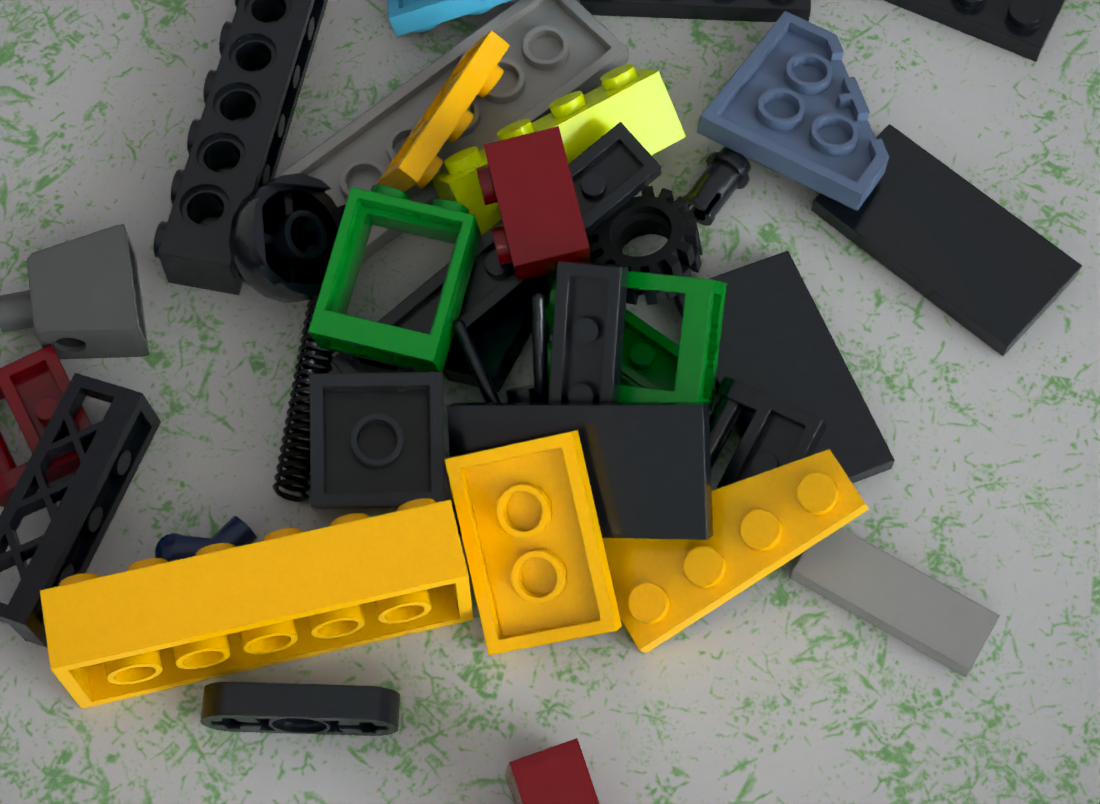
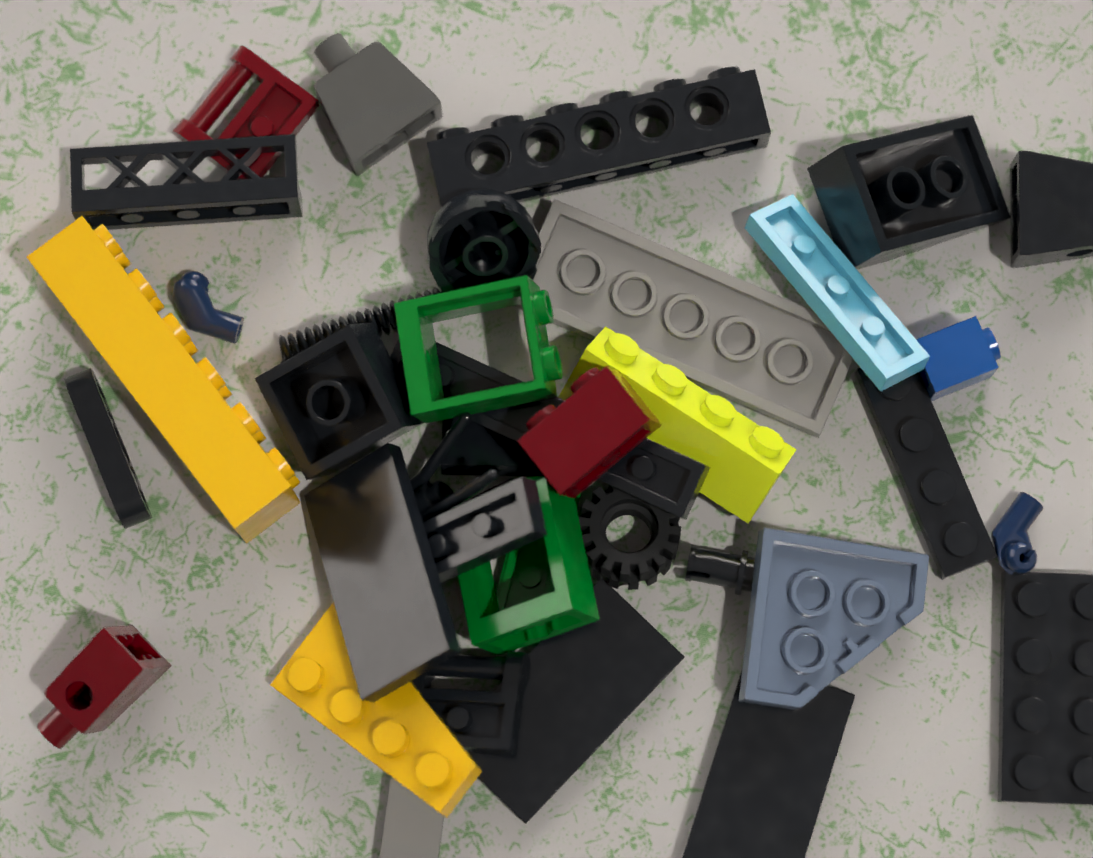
camera: 65 degrees right, 15 degrees up
(446, 115) = (663, 312): yellow plate -> none
(533, 543) = (306, 563): yellow plate -> none

